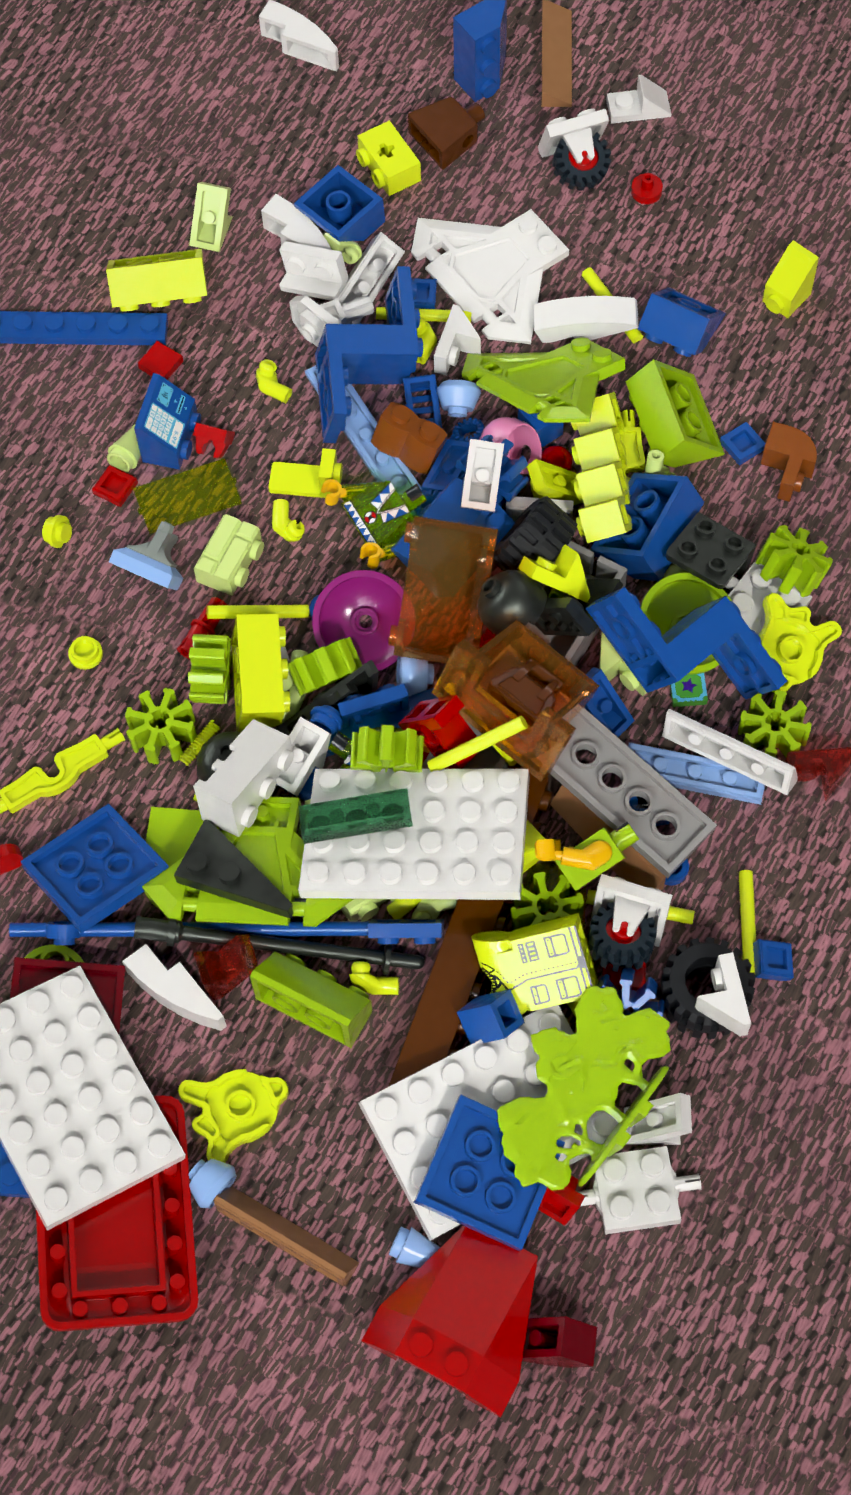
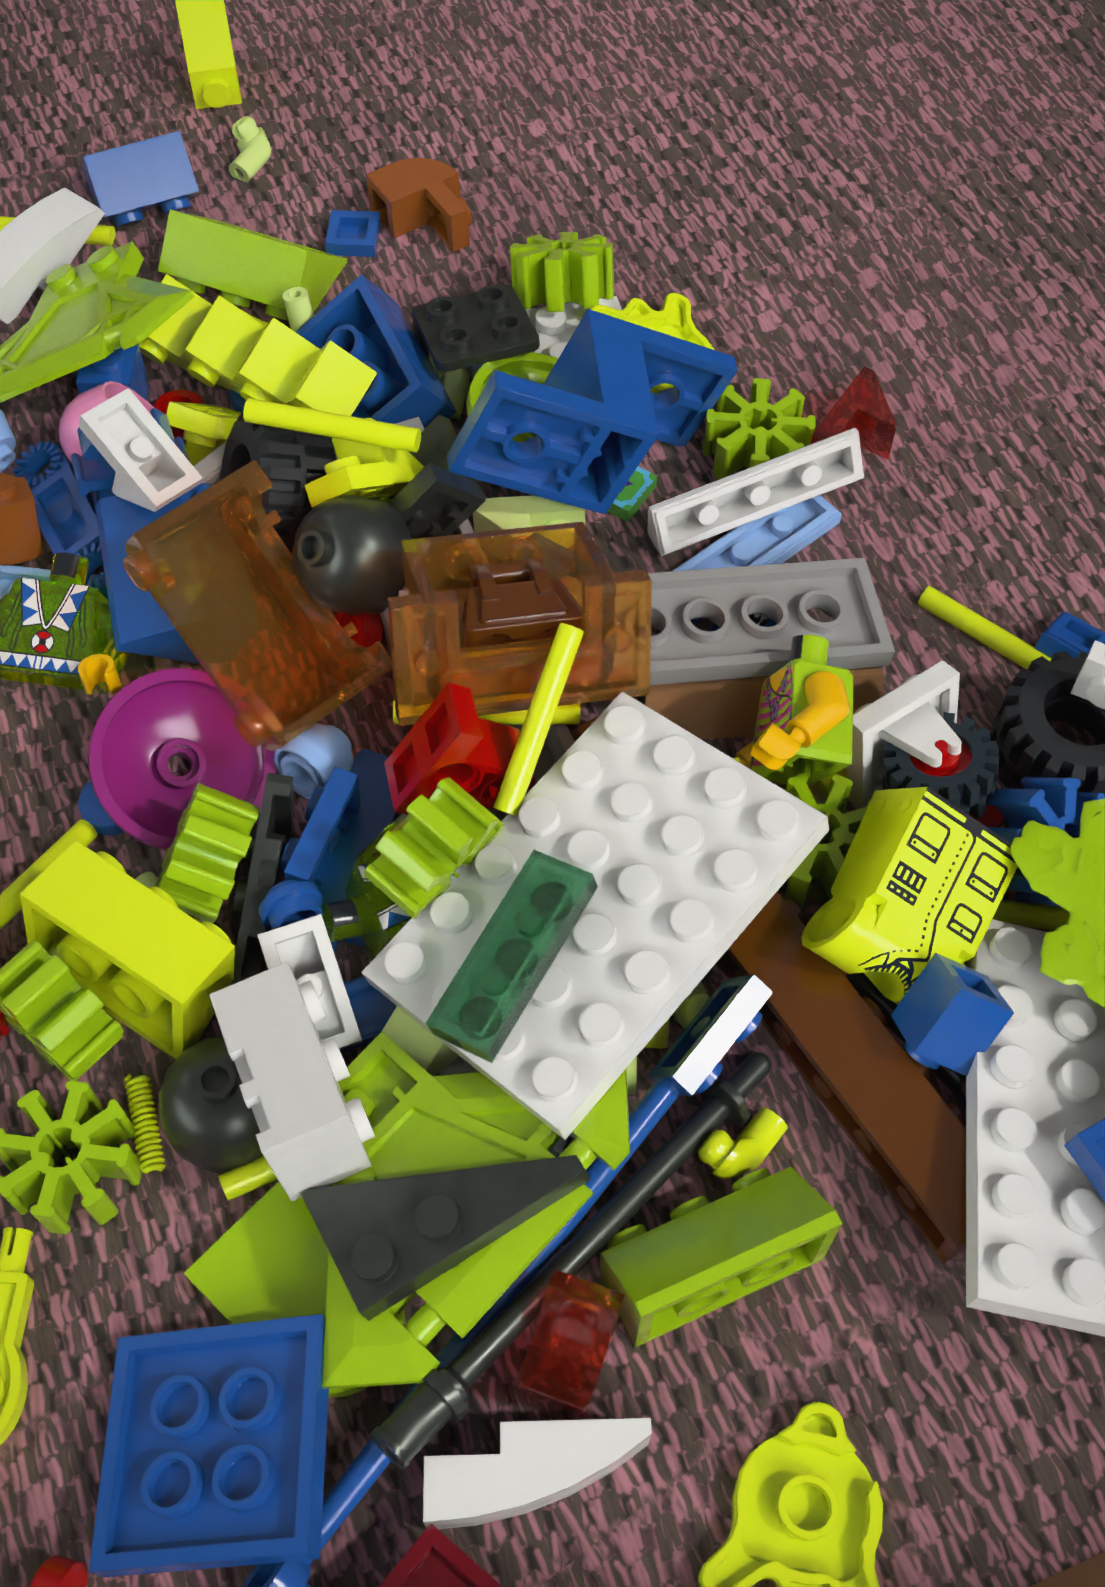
camera: 55 degrees left, 5 degrees down
(559, 542) = (332, 425): none -> neon yellow bar
(756, 353) = (253, 148): none -> yellowish green arm

